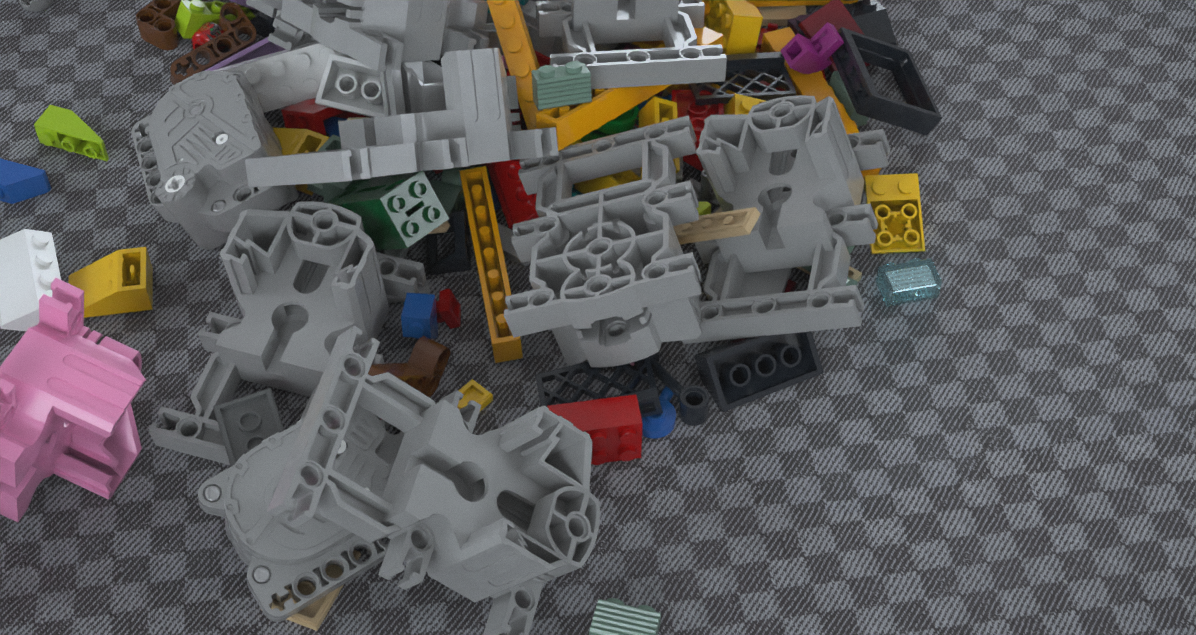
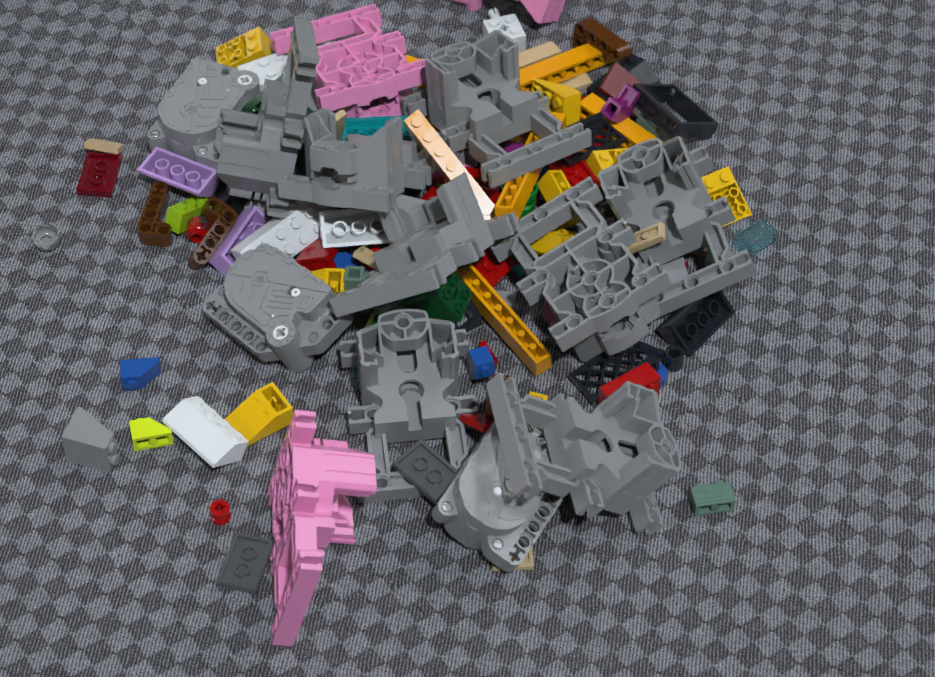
camera: 25 degrees left, 0 degrees up
(68, 132) = (150, 326): lime slope -> none
(561, 85) = (501, 183): sand green brick -> none

